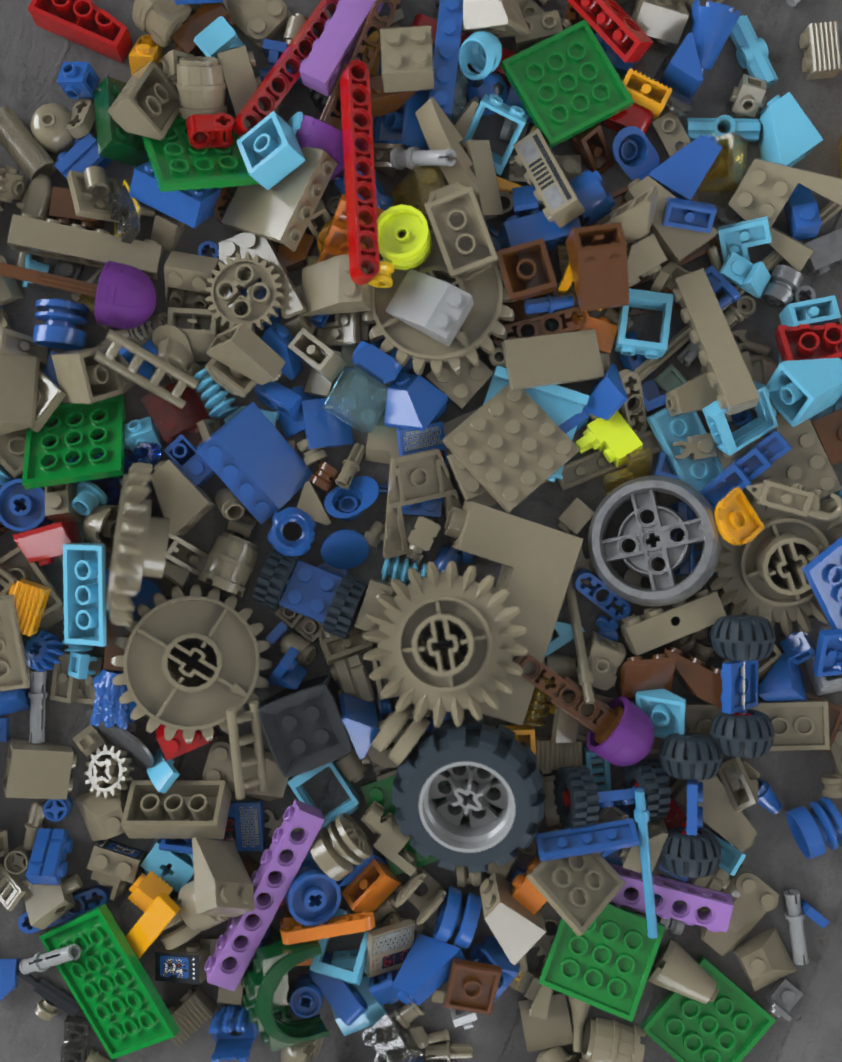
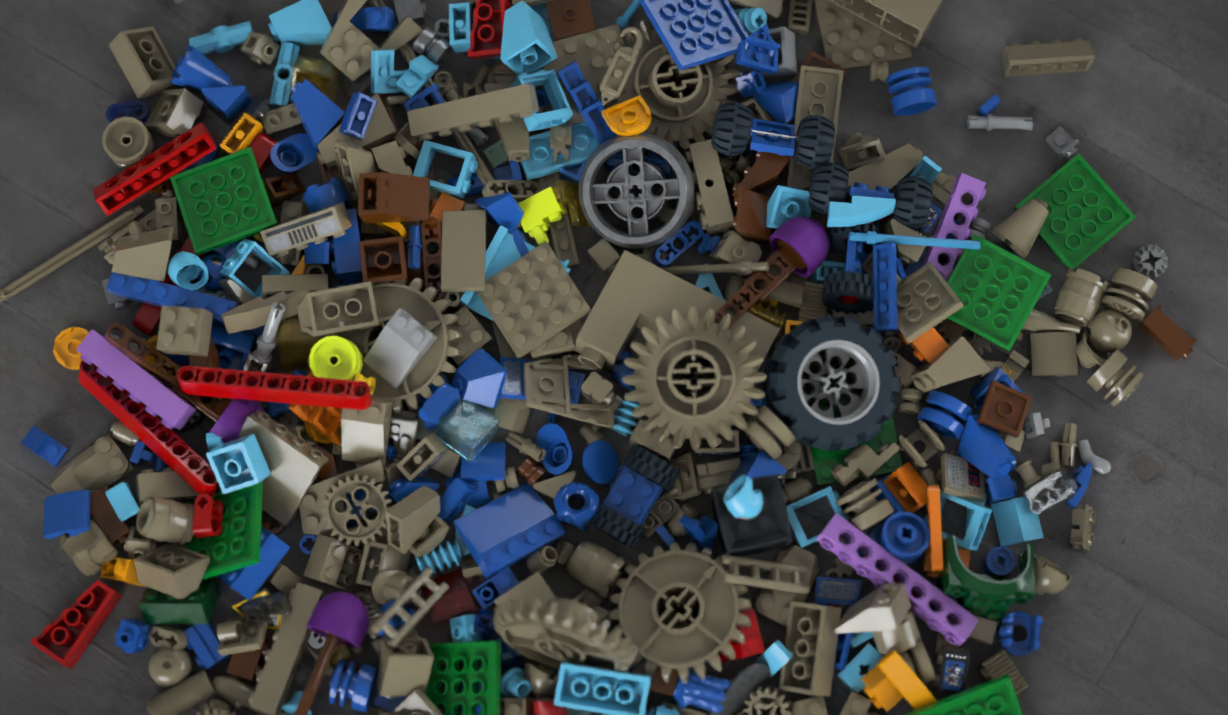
camera: 80 degrees left, 10 degrees down
(310, 725) = (745, 503): none -> medium azure helmet
(341, 995) = (999, 531): blue beam -> none
(541, 1004) = (1033, 353): dark tan slope -> none
(670, 797) = (859, 211): none -> medium azure slope
(751, 901) = (972, 159): dark tan slope -> none
(764, 959) = (1026, 154): dark tan slope -> none
(767, 797) = (881, 129): blue cone -> none

